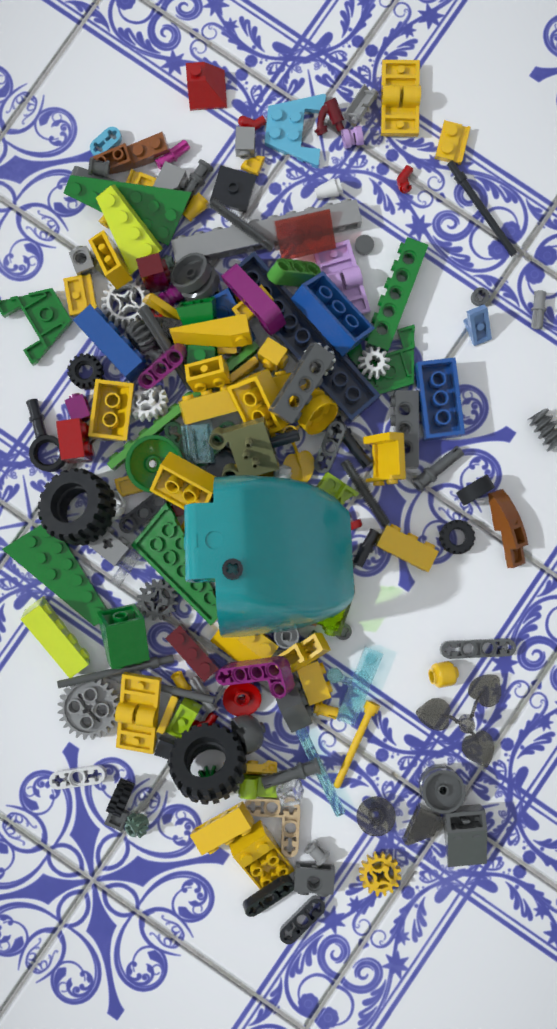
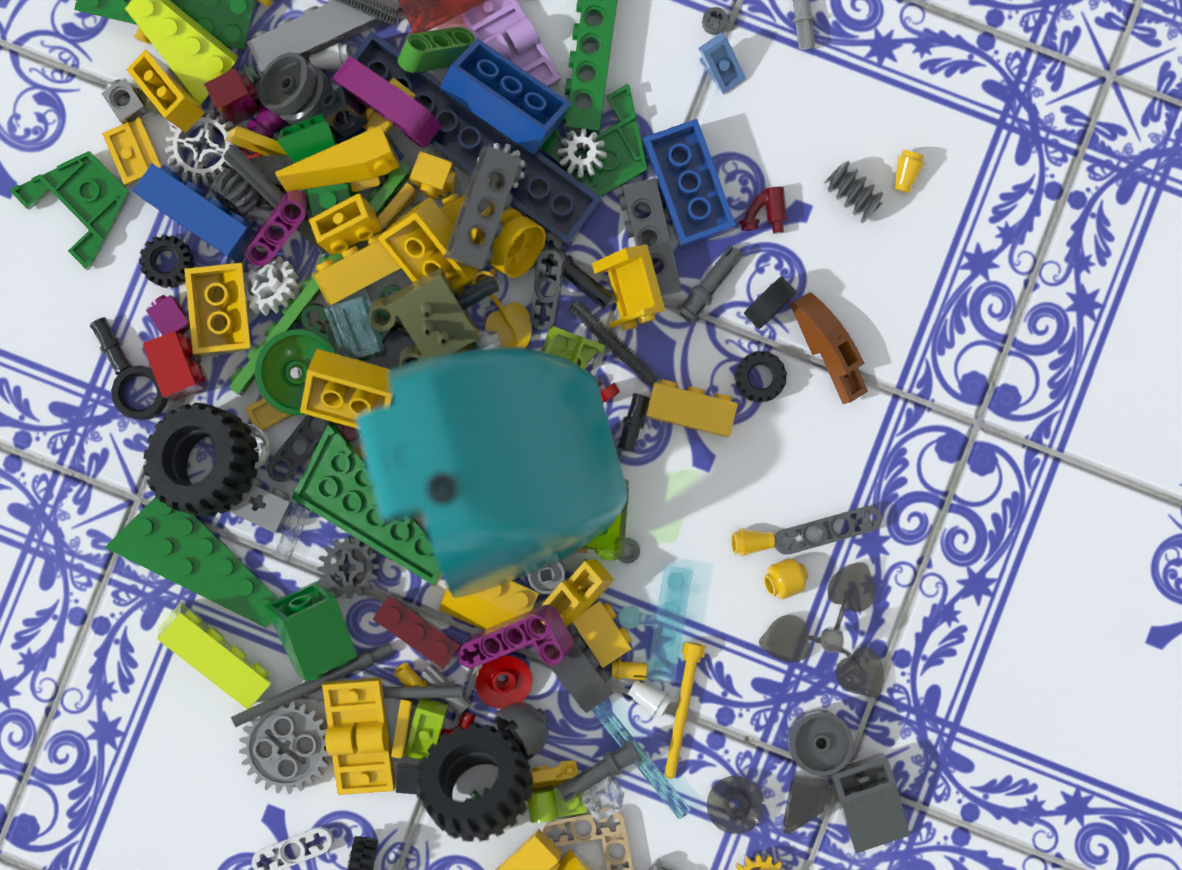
camera: 20 degrees left, 0 degrees up
(223, 263) = (332, 57): none -> white cone
(223, 299) = (343, 112): none -> black brick
(336, 733) = (650, 698): none -> white cone
(426, 644) = (751, 541): none -> yellow cone
(492, 424) = (775, 208): none -> dark red plant

